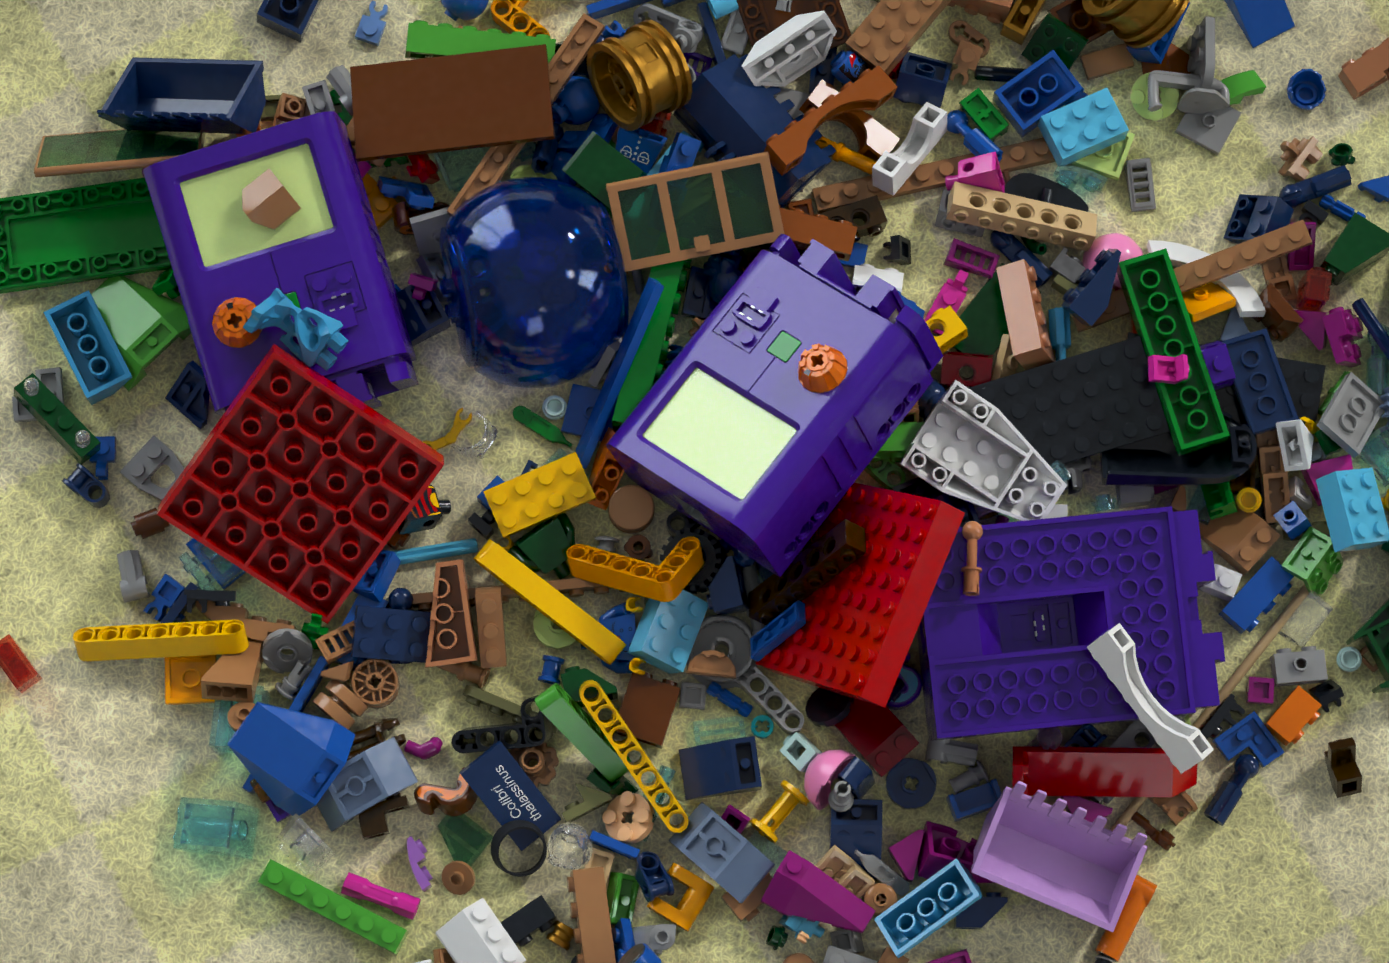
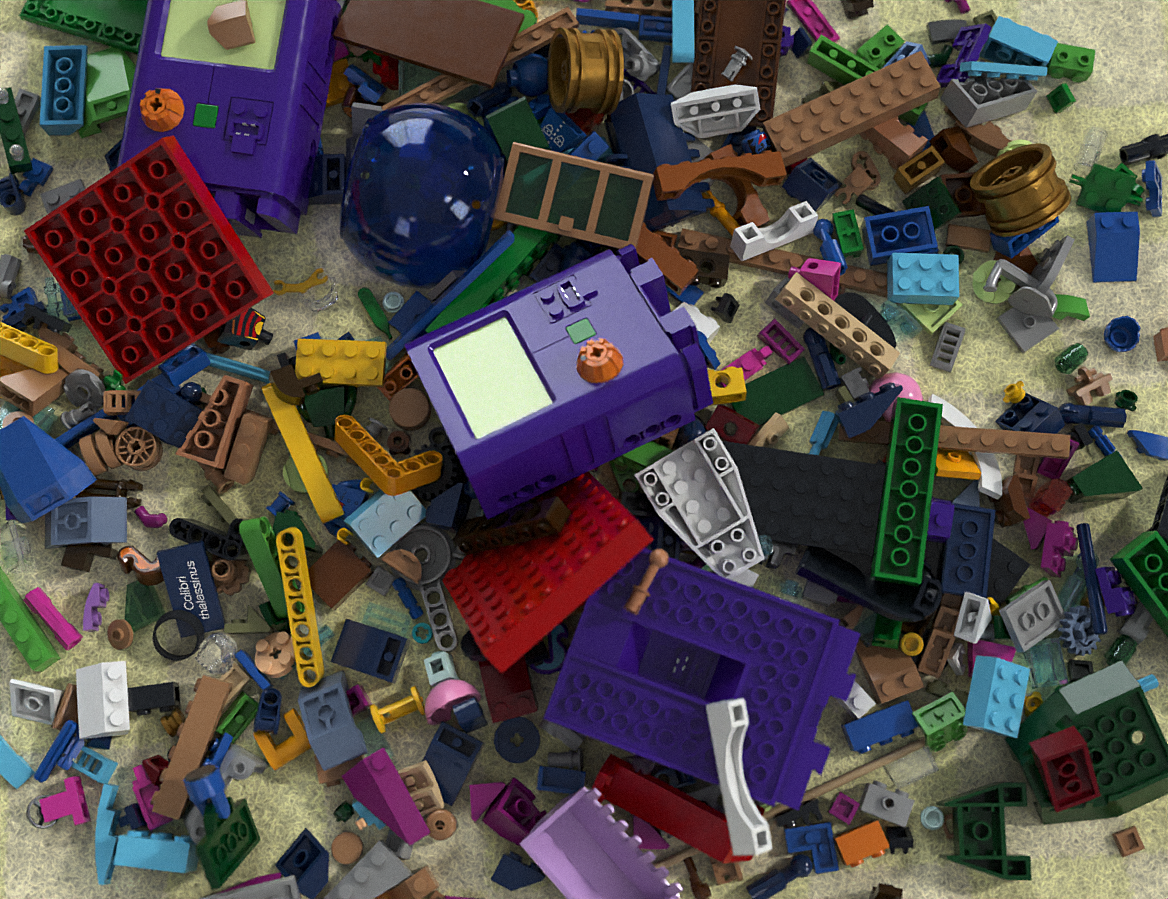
camera: 30 degrees right, 0 degrees up
(312, 339) = (207, 141): dark azure hips -> none
(422, 284) = (334, 157): magenta tile -> none
(508, 544) = (292, 390): none -> dark brown brick
(778, 630) = (467, 562): blue tile -> none
(840, 797) = (448, 725): light grey pin -> none
(884, 873) = (455, 803): light grey piece -> none
(928, 907) = (472, 854): dark azure slope -> none
(1024, 315) = (800, 405): nougat wedge -> none
(1103, 80) = (955, 250): none -> dark green plate
(1168, 369) = (895, 503): dark pink bracket -> none
(1228, 200) = (1014, 392): none -> yellow plate
(1268, 138) = (1071, 358): none -> clear green brick
(1294, 526) = (940, 685): blue plate -> none

